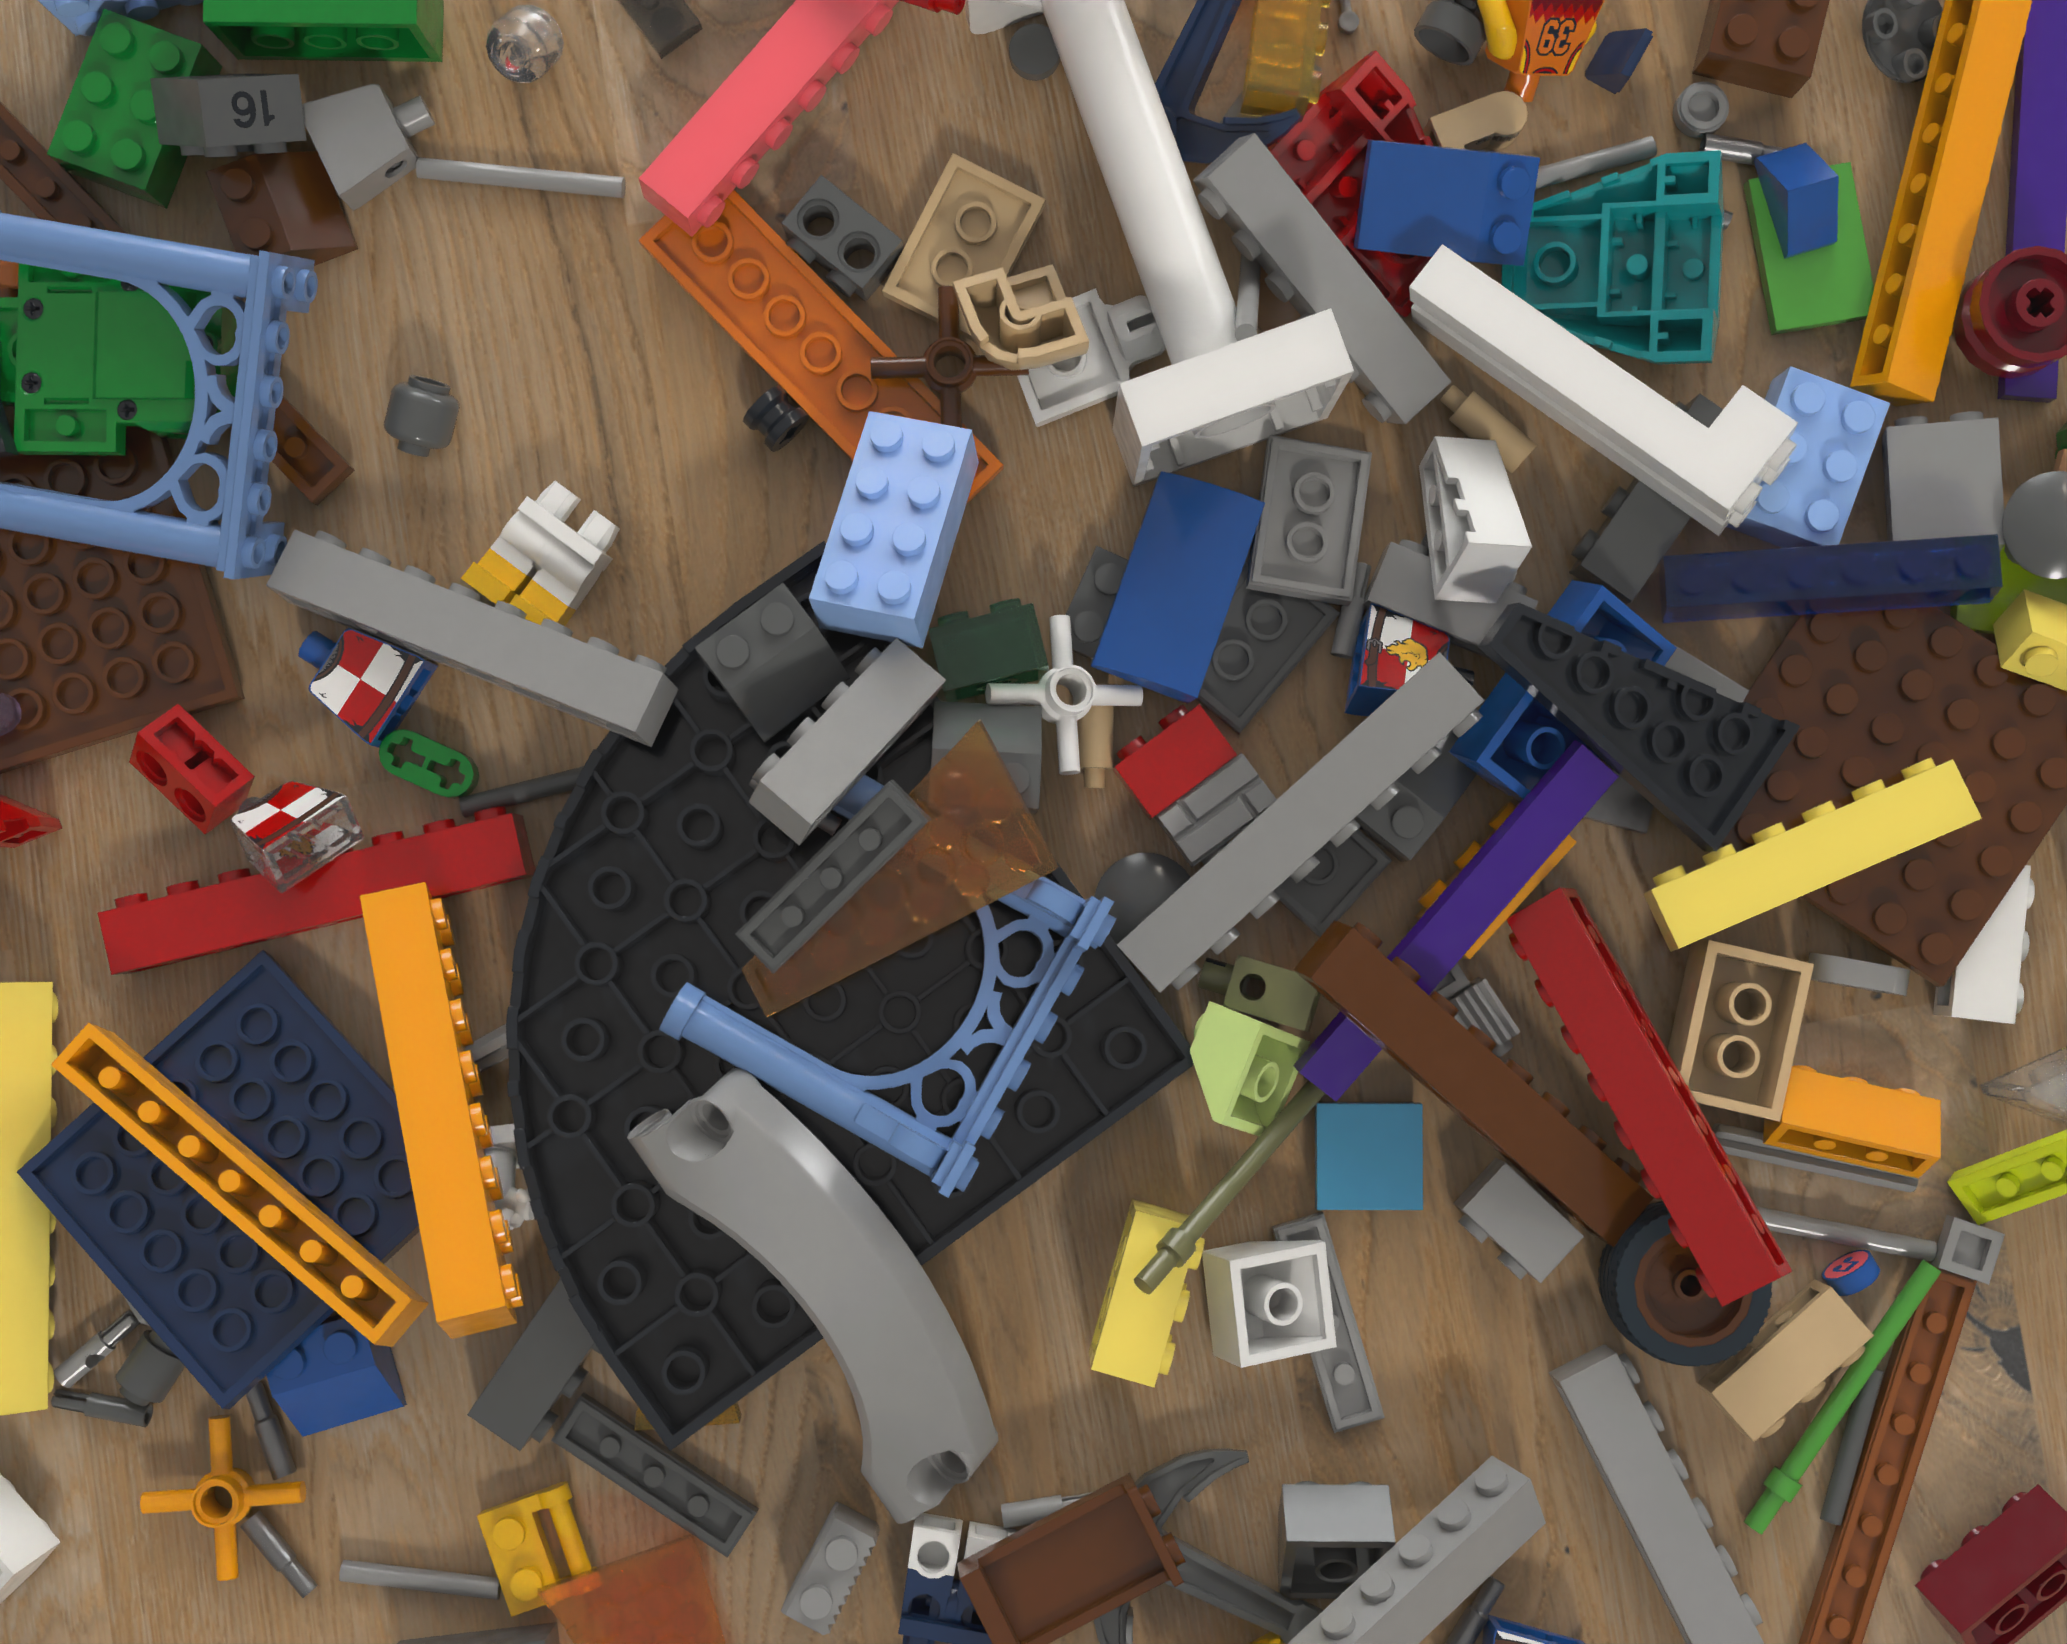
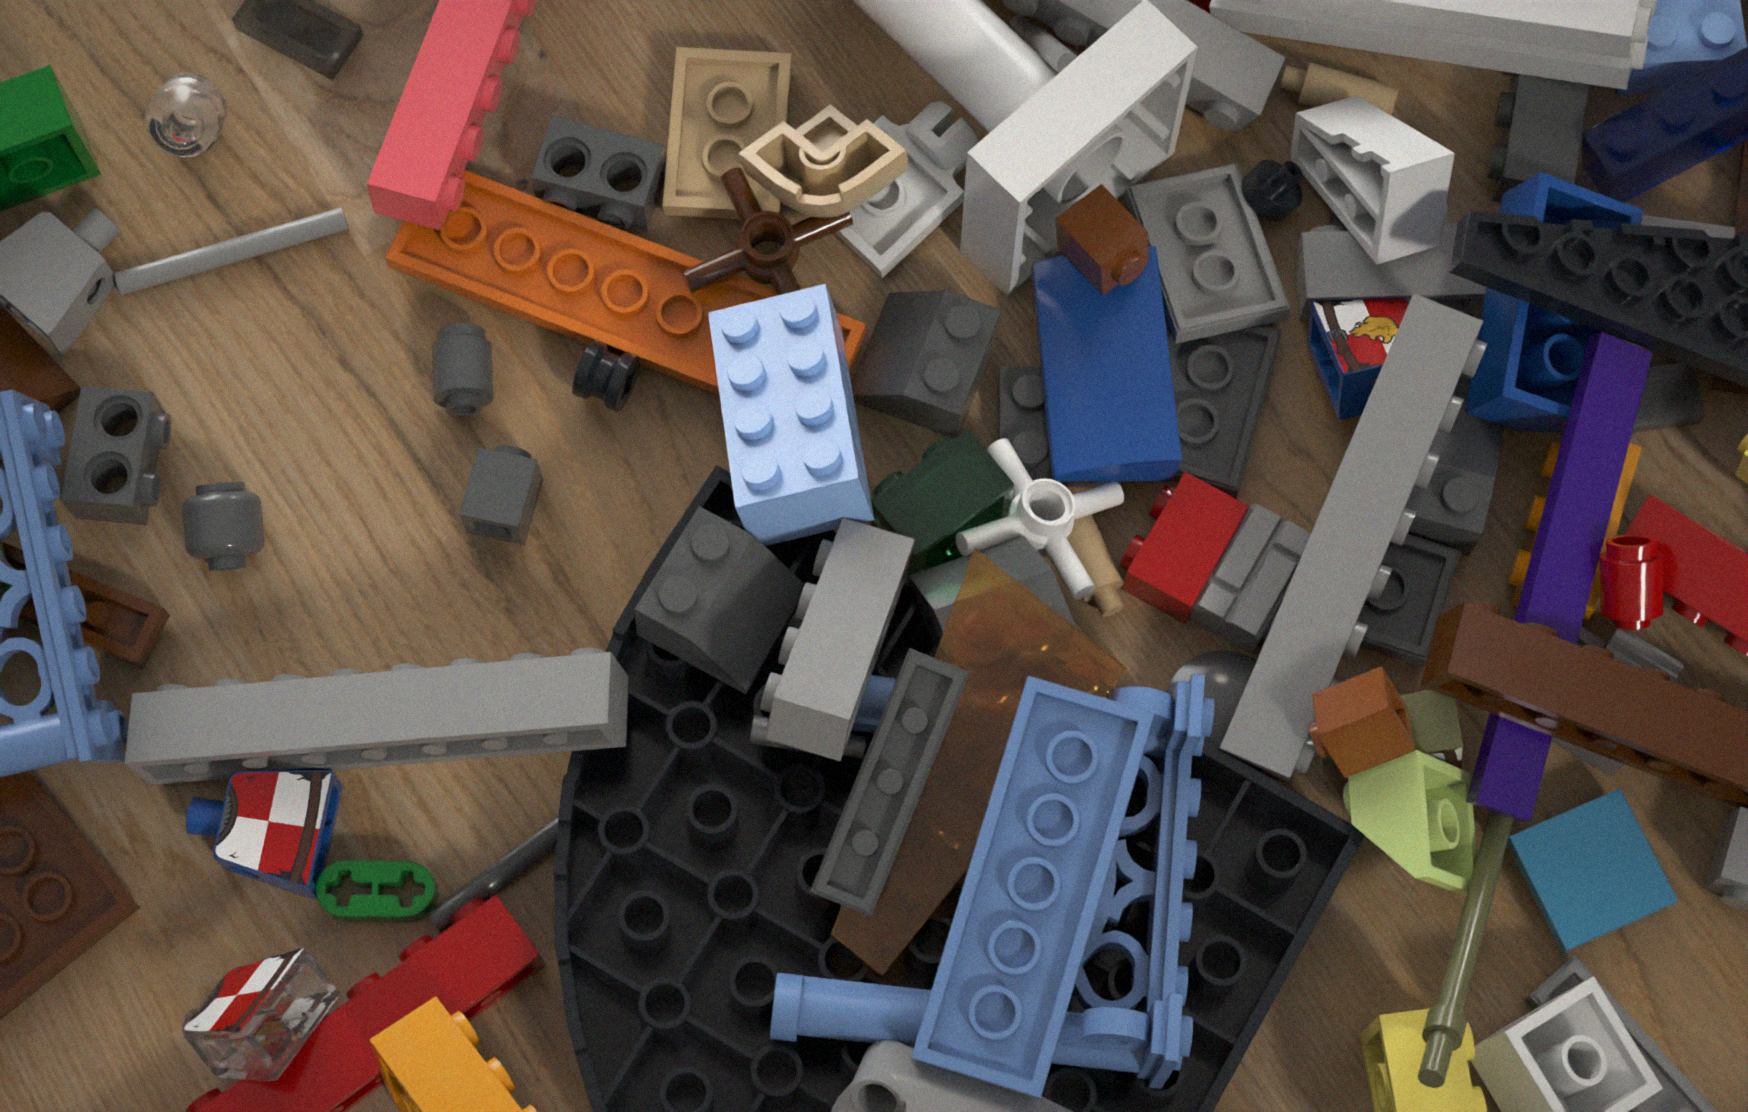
camera: 25 degrees left, 15 degrees down
(191, 768) = (113, 1001): red brick -> none
(345, 312) = (100, 456): none -> dark grey brick
(542, 560) = (418, 610): white hips -> none
(652, 483) = (501, 494): none -> dark grey brick
(663, 363) = (462, 369): none -> dark grey brick
(904, 1009) = (1033, 887): none -> medium blue plate
(1040, 514) = (927, 358): none -> dark grey slope
(1219, 484) = (1103, 240): none -> dark orange brick
(1231, 980) = (1361, 723): none -> dark orange brick
(1351, 616) = (1296, 334): light grey pin -> none
(1388, 489) = (1273, 189): none -> black tile
(1508, 951) = (1631, 581): none -> red brick

